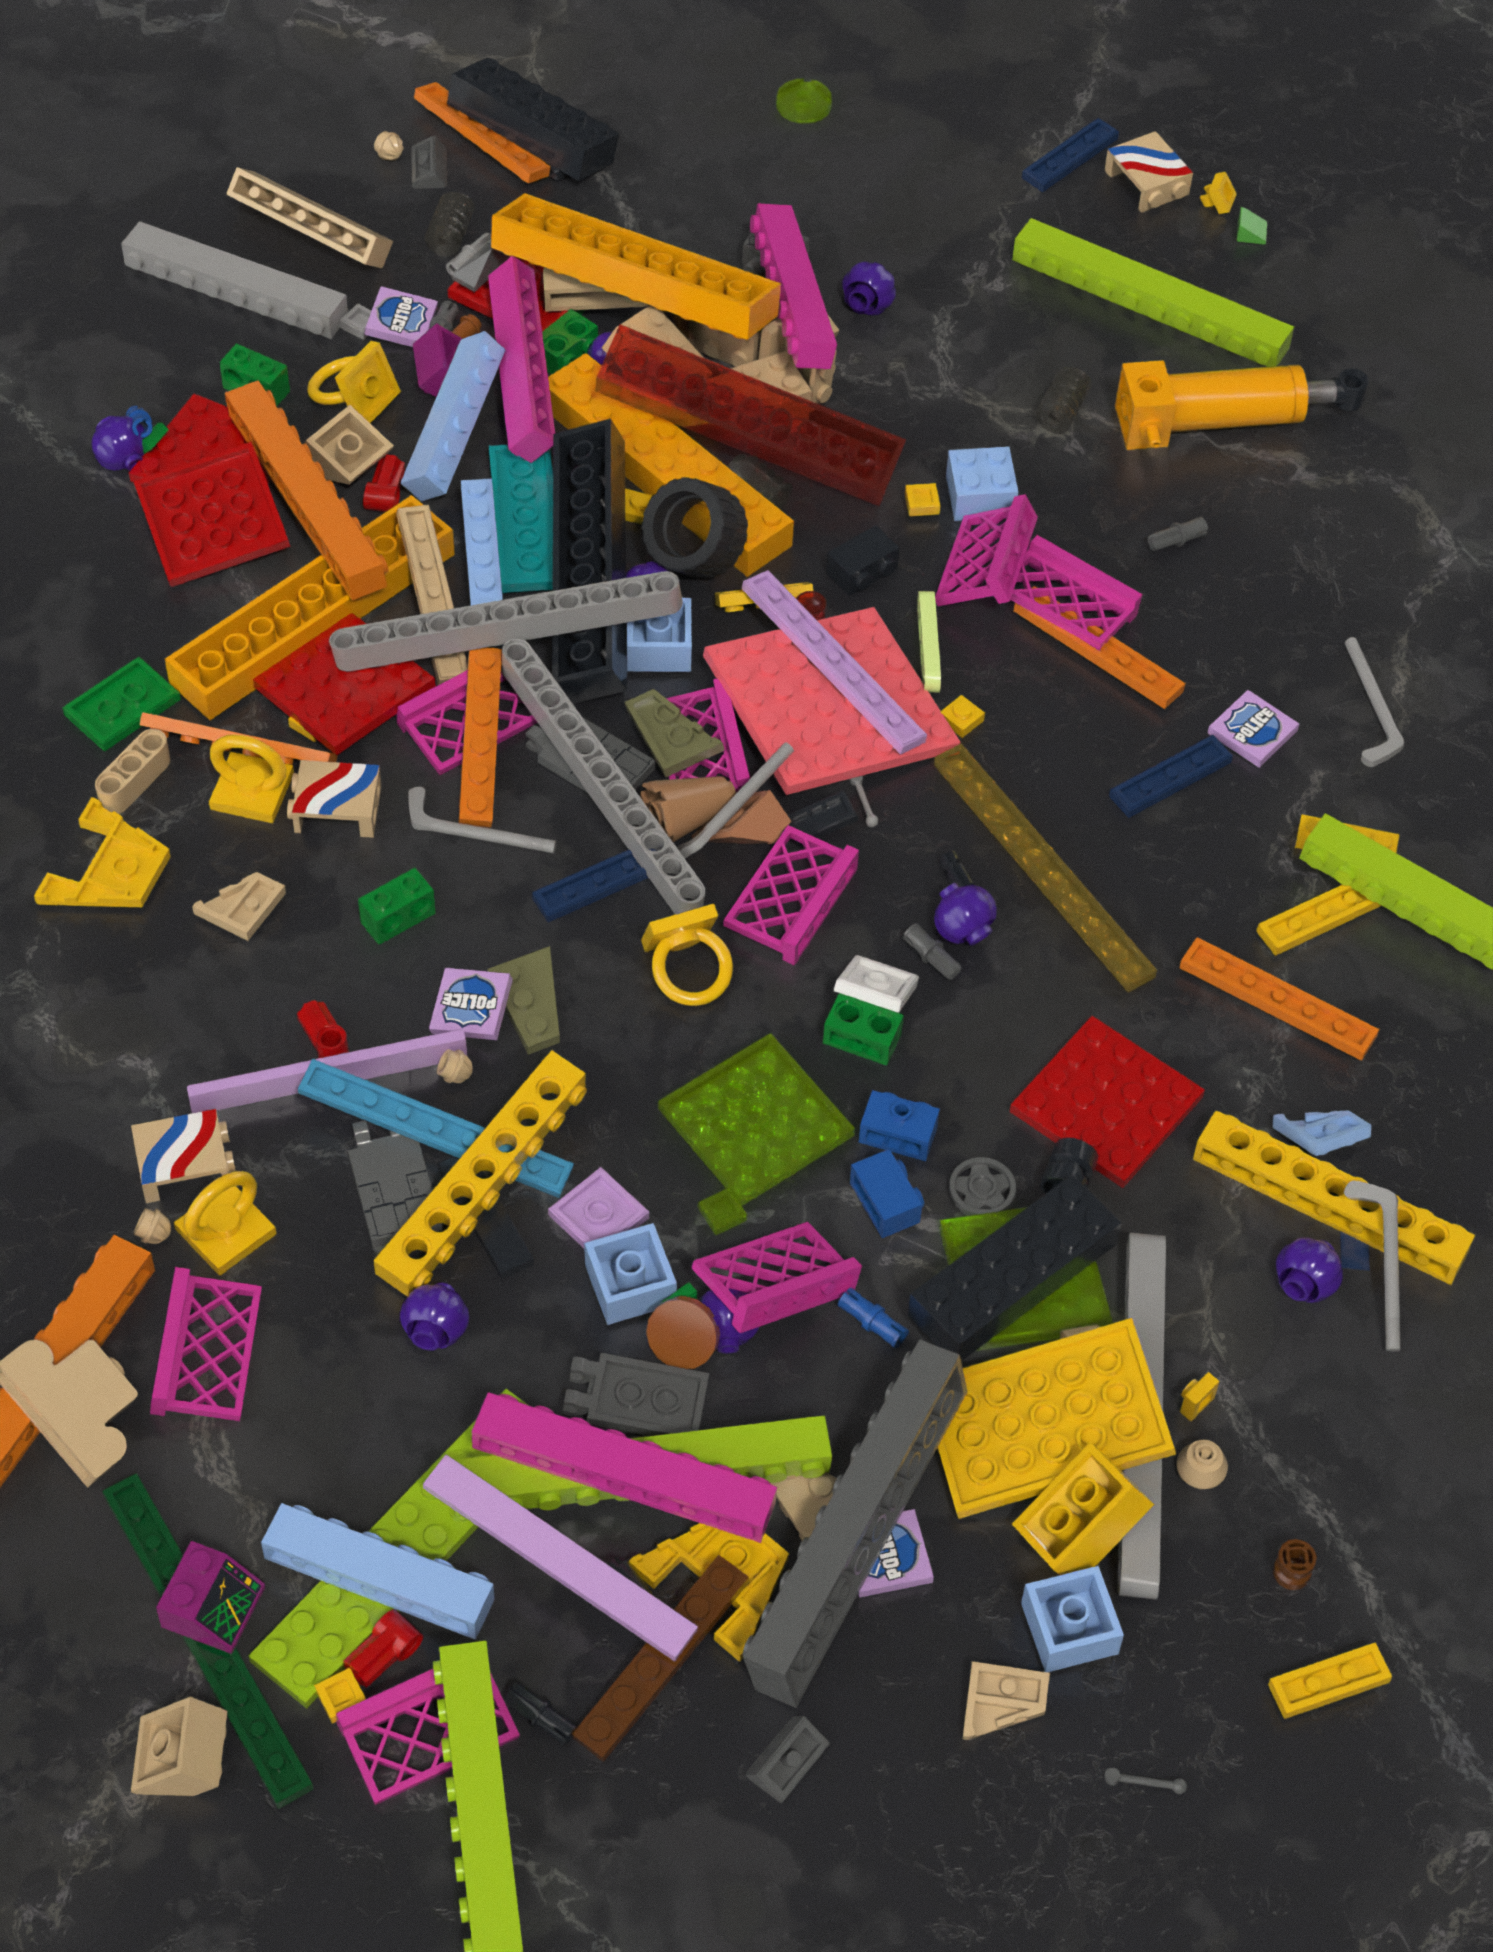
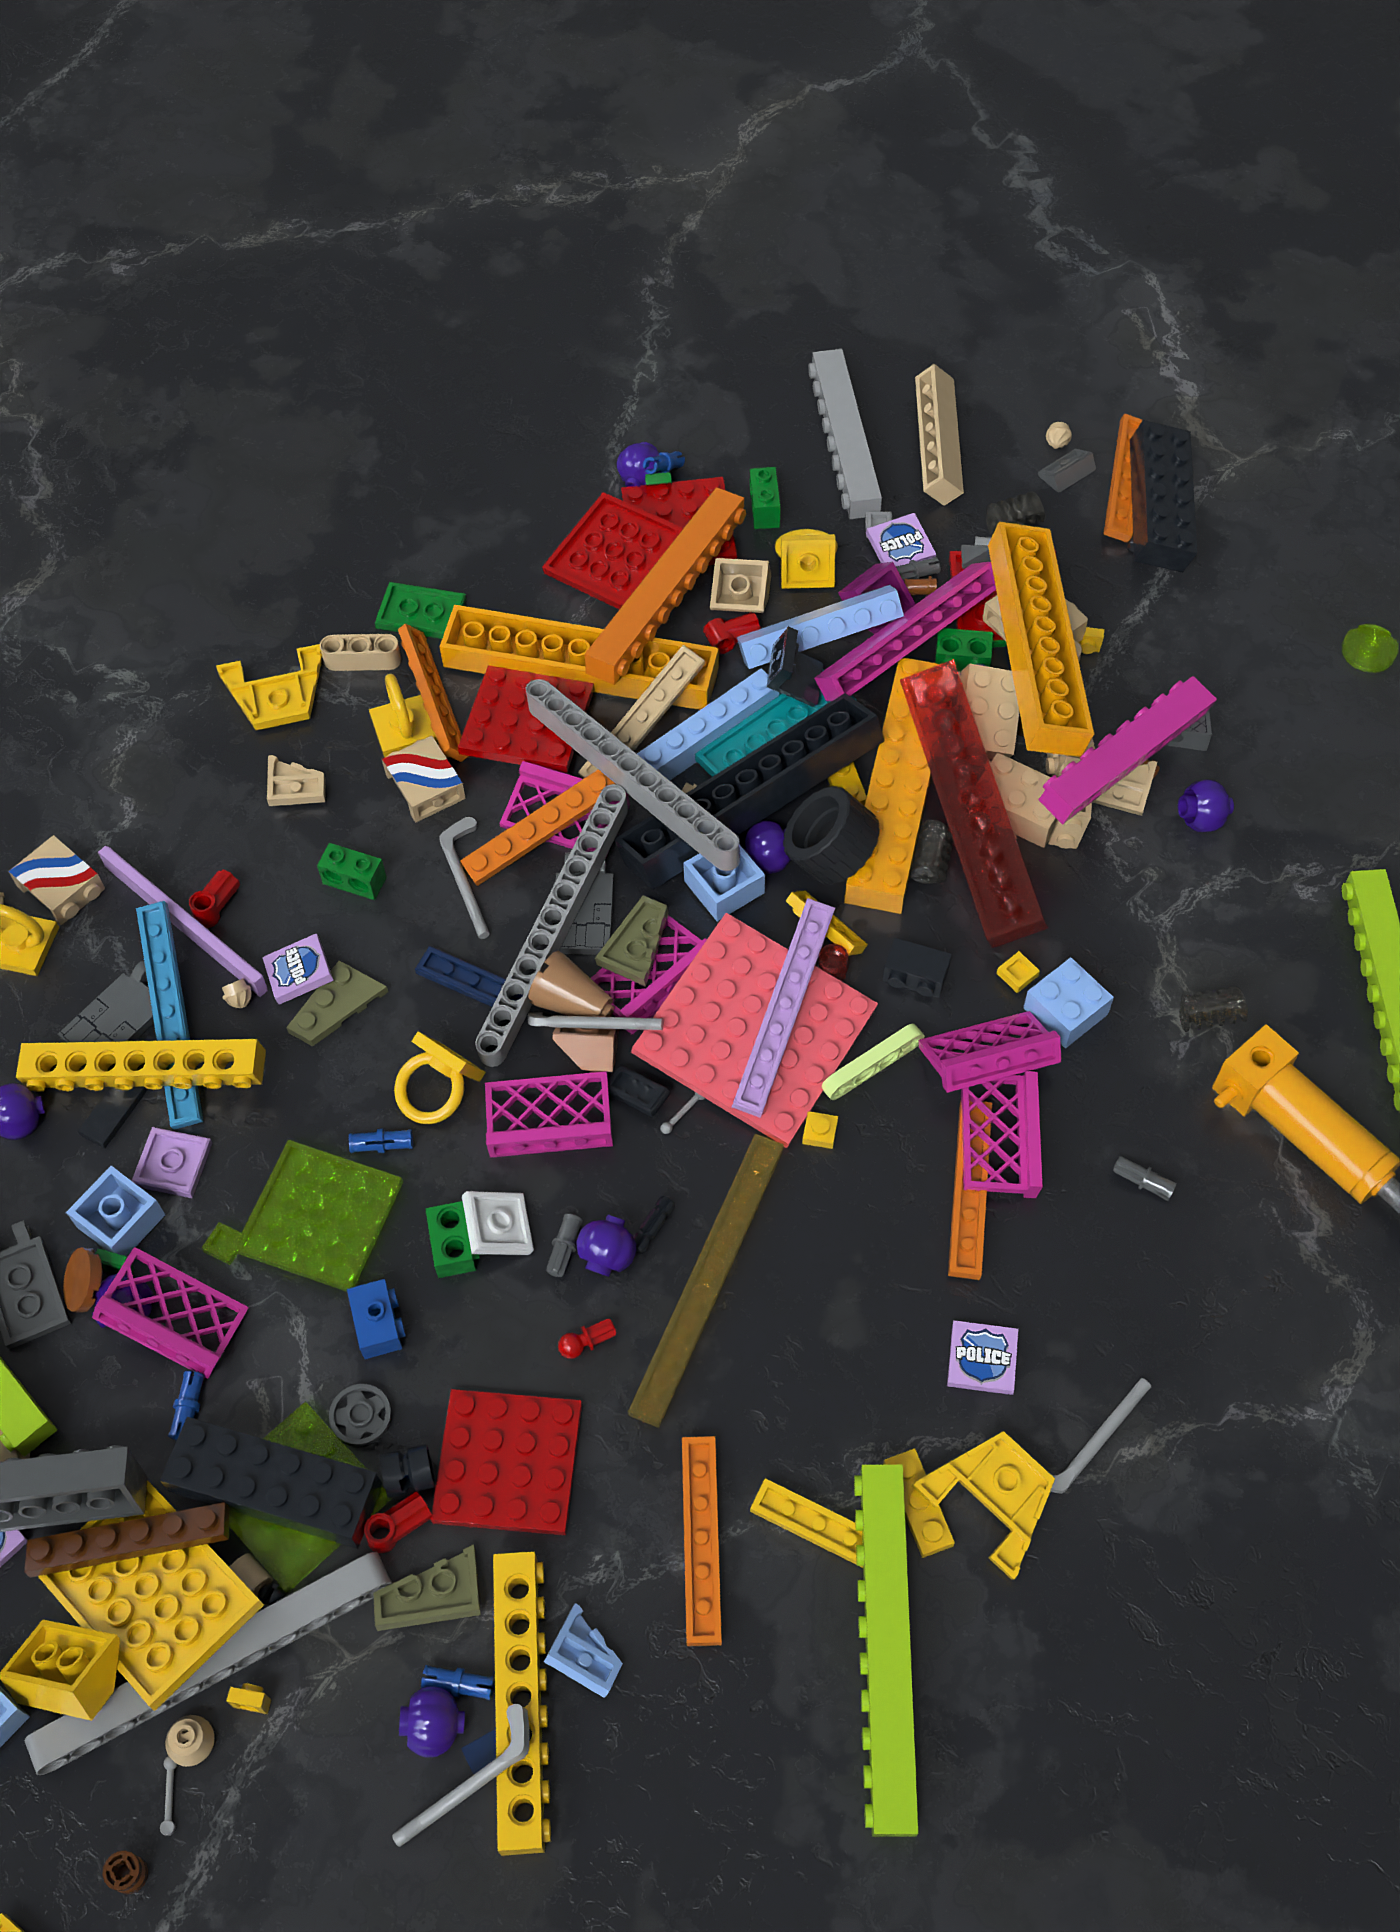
camera: 60 degrees right, 5 degrees up
(486, 454) = (793, 671): none -> black bracket
(714, 1034) = (361, 1141): none -> blue pin
(886, 1193) = (299, 1346): blue brick -> none
(987, 1412) = (127, 1539): none -> reddish brown plate
(1034, 994) = (572, 1344): none -> red axle
(1110, 1191) = (399, 1519): none -> red piece
(1170, 776) = (881, 1321): dark blue tile -> none
(1194, 1213) = (432, 1596): none -> olive wing
(1268, 1520) = (167, 1826): none -> light grey hinge
(1284, 1234) = (458, 1682): none -> blue pin
(1381, 769) = (1005, 1483): none -> yellow wing

